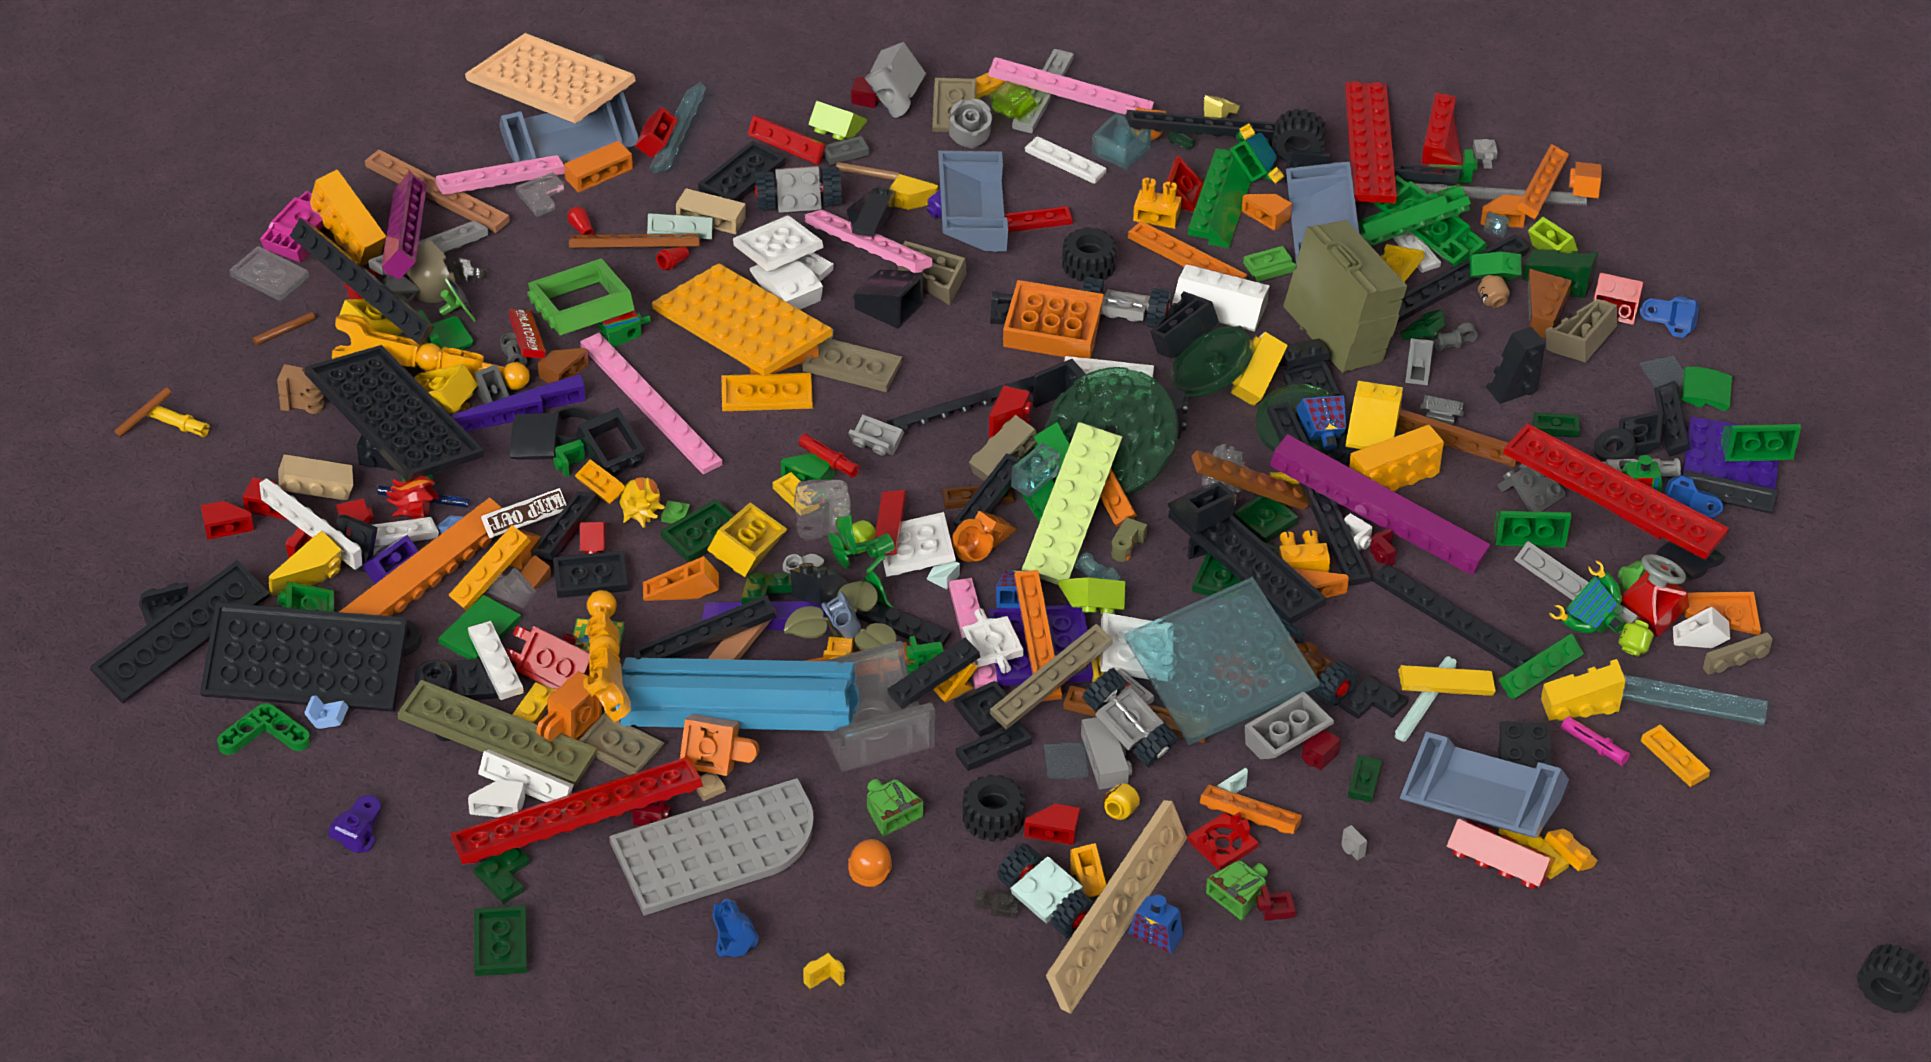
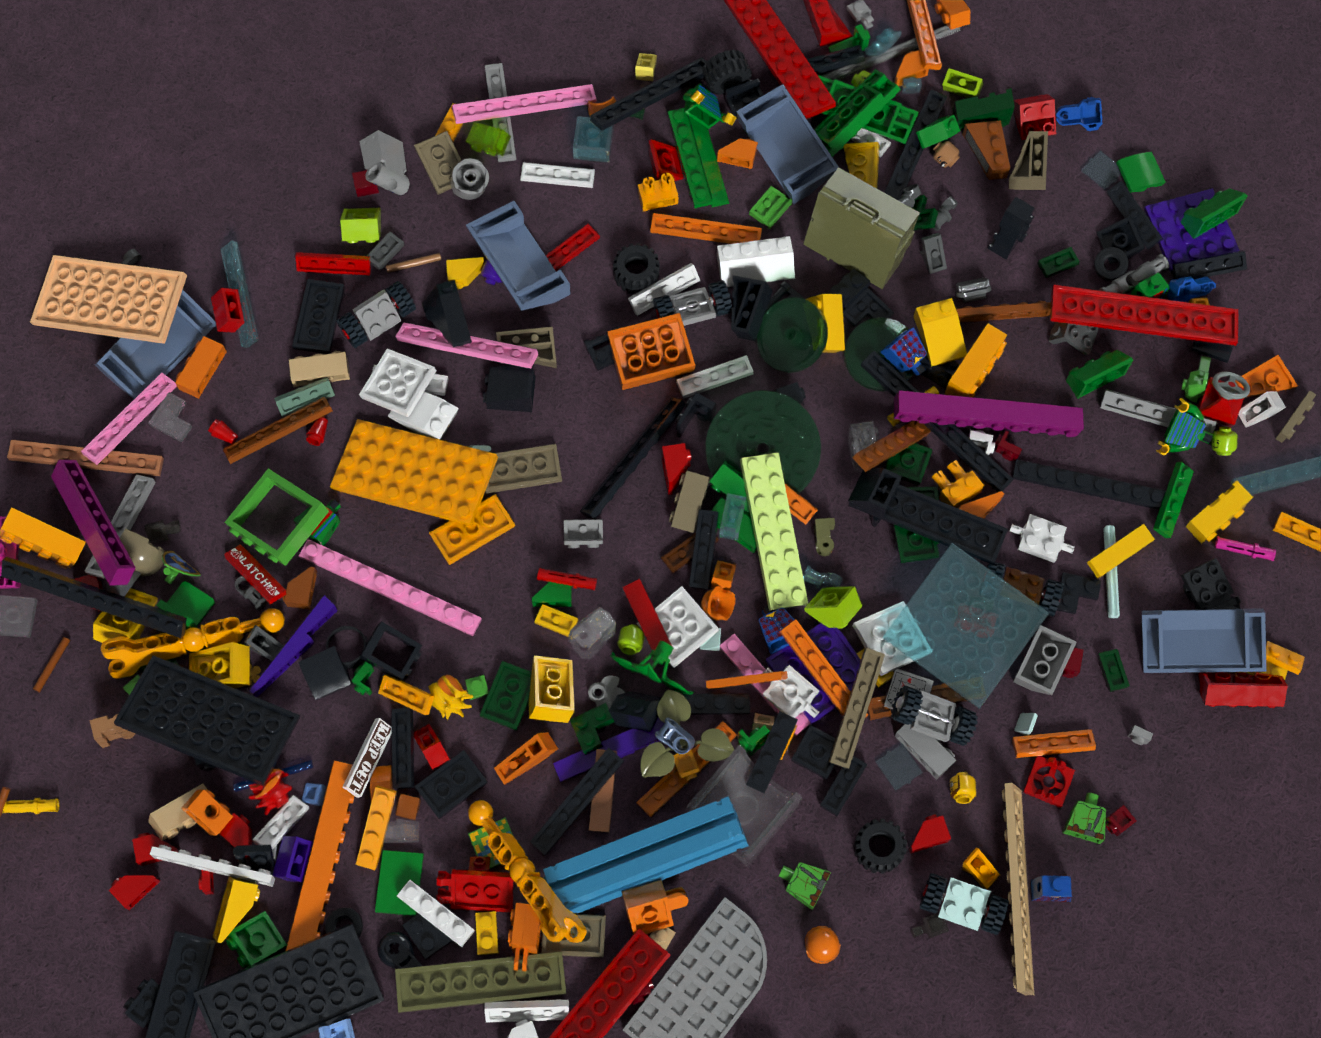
camera: 30 degrees left, 25 degrees up
(335, 492) = (196, 807): none -> orange brick
(953, 608) = (743, 680): none -> orange tile
(1119, 281) = (669, 286): none -> white plate
(1367, 640) = (1042, 538): none -> white plate
(1420, 307) = (910, 193): none -> dark grey connector
(1491, 179) = (883, 43): none -> clear light blue slope

